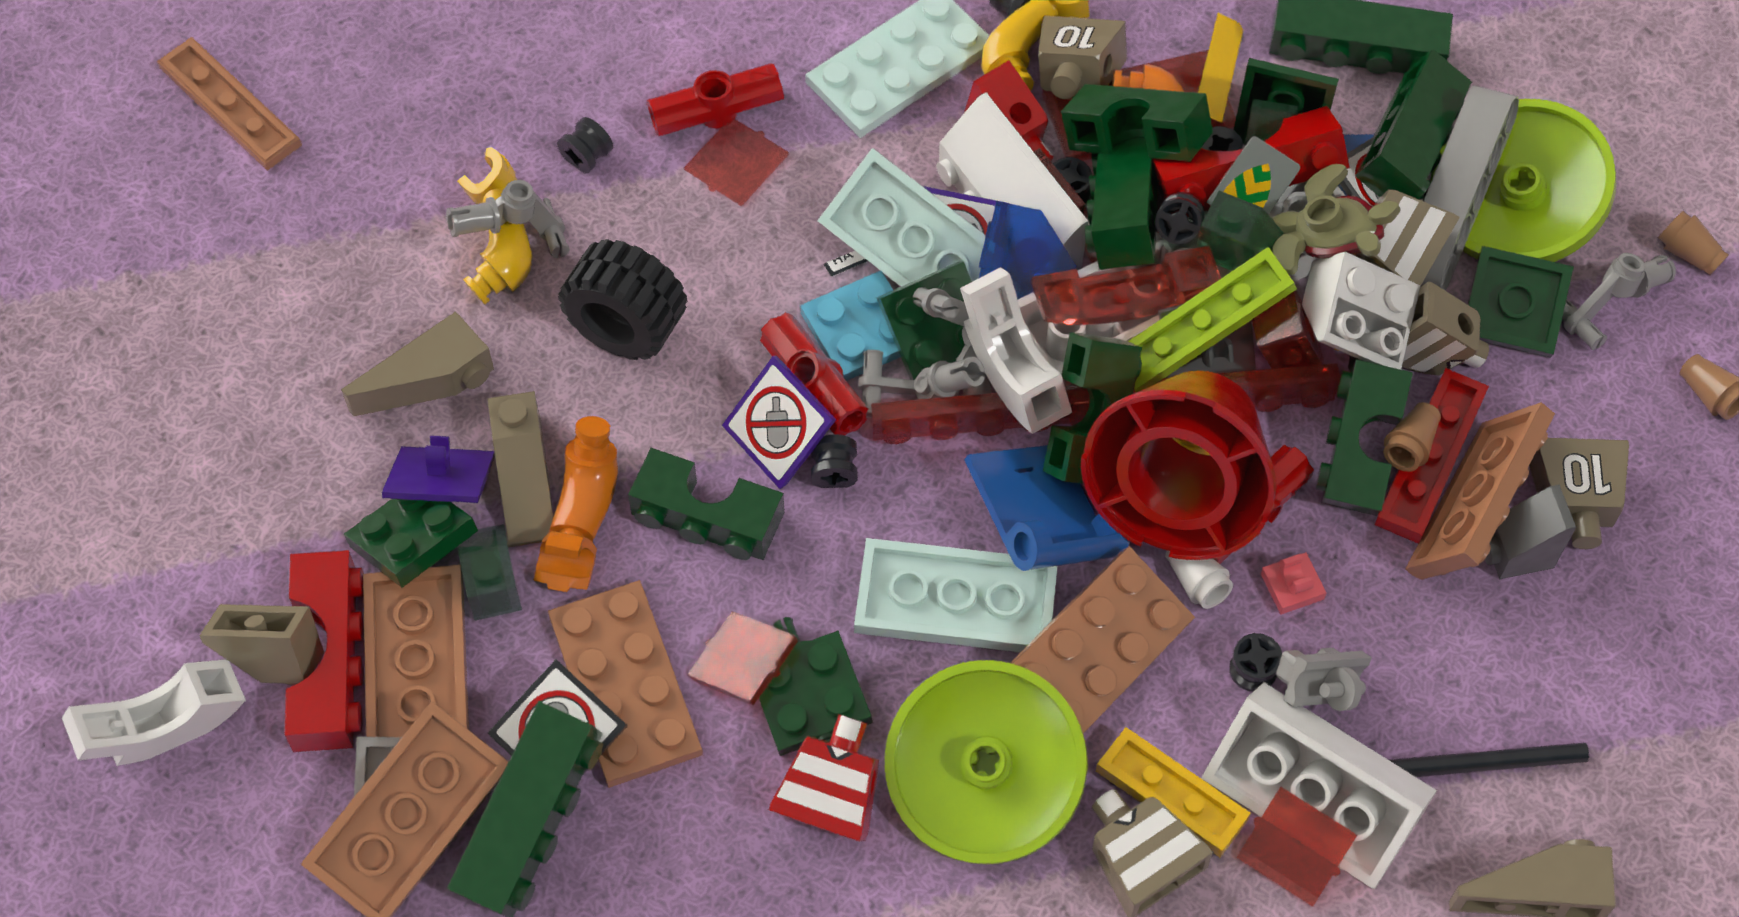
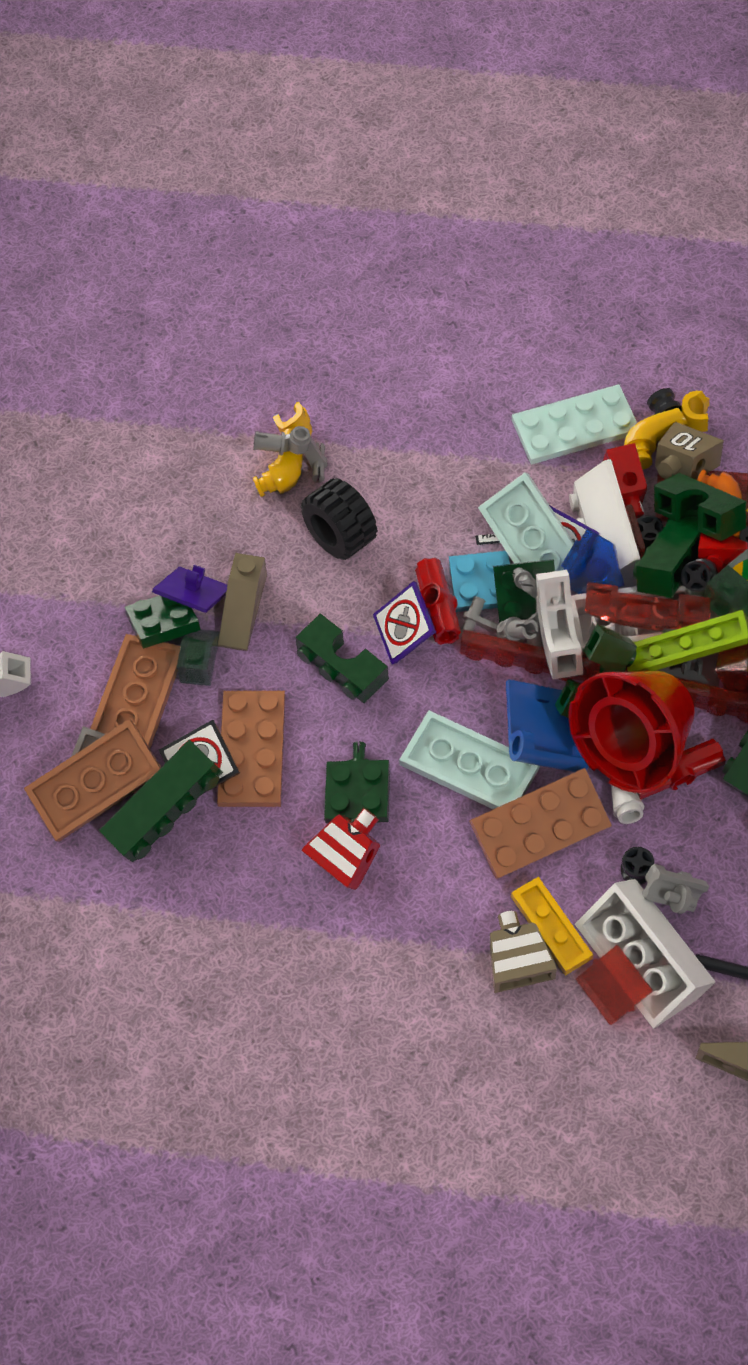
camera: 25 degrees right, 0 degrees up
(229, 103) = (160, 329): nougat tile -> none
(266, 641) = (55, 654): dark tan slope -> none
(322, 706) = (73, 703): red arch -> none
(426, 369) = (210, 524): dark tan slope -> none
(585, 145) = (358, 418): black wheel -> none
(587, 490) = (276, 626): orange piece -> none
(715, 99) = (448, 413): red piece -> none
(736, 161) = (448, 455): clear red piece -> none
(742, 658) = (325, 756): clear red piece -> none
(834, 462) = (429, 658): black wheel -> none
(986, 762) = (443, 867): lime dish -> none
(1293, 583) = (684, 826): coral tile -> none

